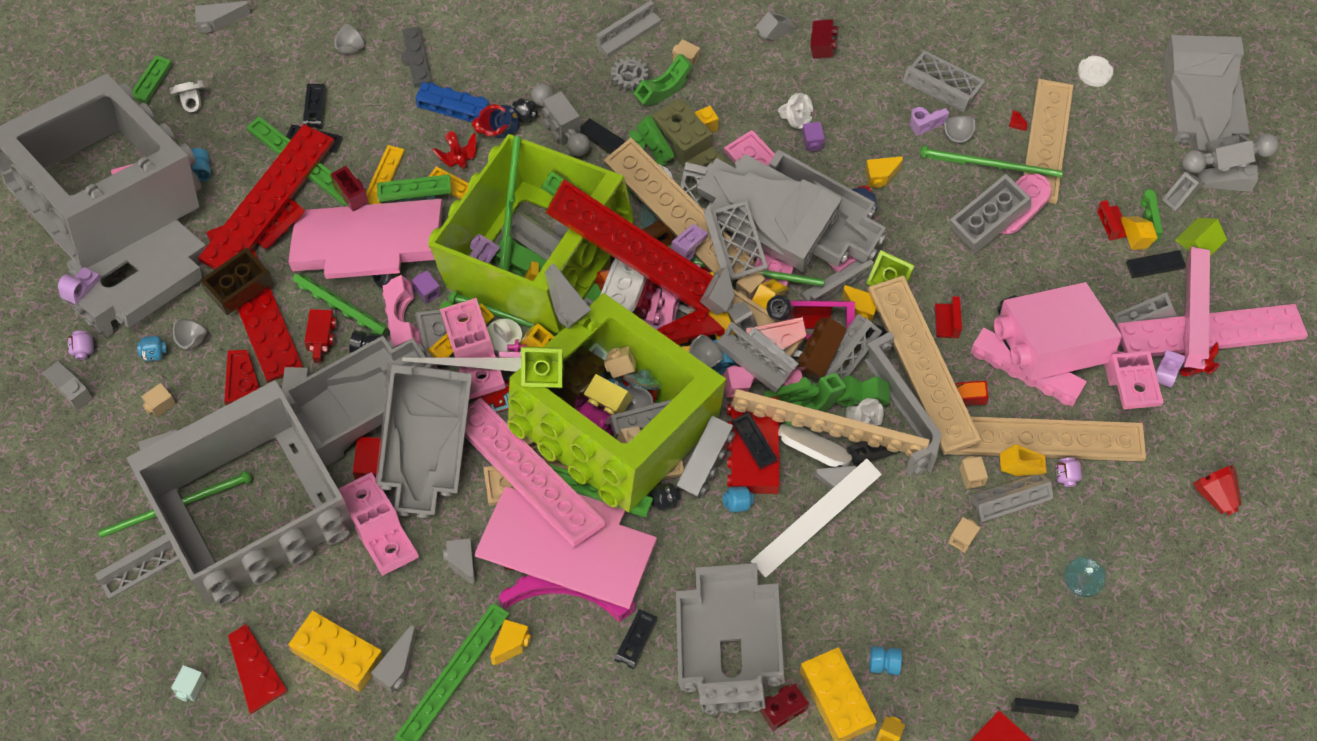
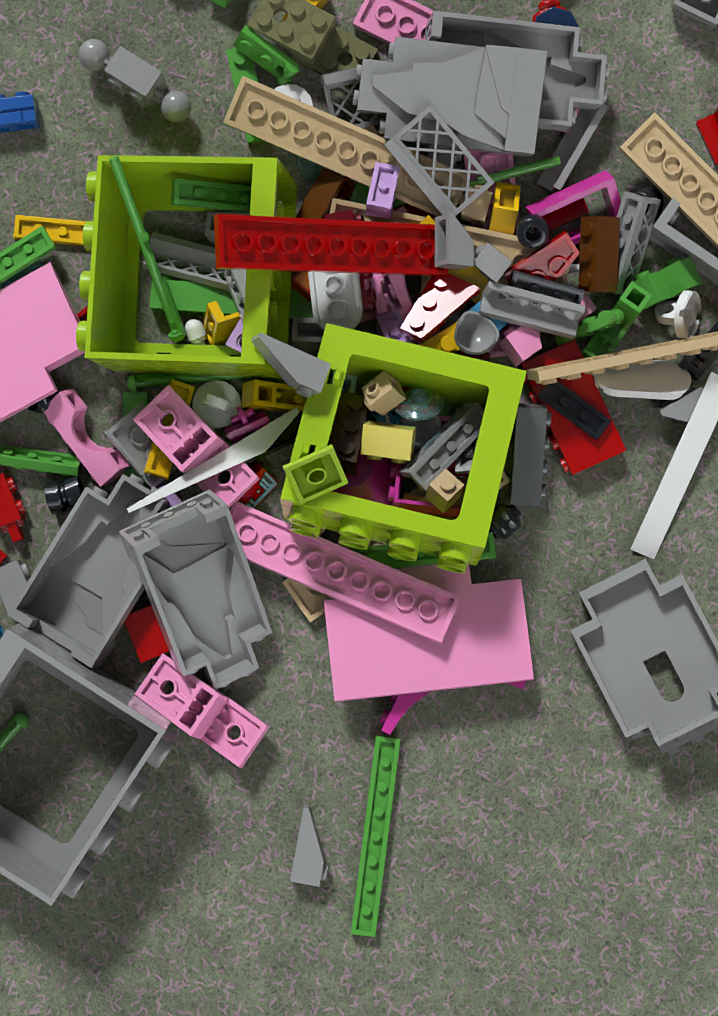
camera: 20 degrees left, 25 degrees up
(188, 683) = (99, 982): light aqua brick -> none
(255, 672) = (161, 931): red wing -> none
(336, 651) = (236, 871): yellow brick -> none
(426, 287) = (93, 385): medium lavender brick -> none
(458, 154) = (32, 184): red animal -> none
(460, 558) = (314, 701): light grey slope -> none
(483, 248) = (140, 311): lavender plate -> none
(496, 121) = (57, 119): piece -> none
(510, 642) = (418, 769): yellow slope -> none
(525, 110) = (81, 86): black head -> none
(601, 136) = (198, 77): black tile -> none
(636, 638) = (550, 699): black plate -> none
(738, 499) = (584, 484): dark azure head -> none
(863, 302) = (614, 163): yellow slope -> none
(889, 267) = (629, 108): lime slope -> none

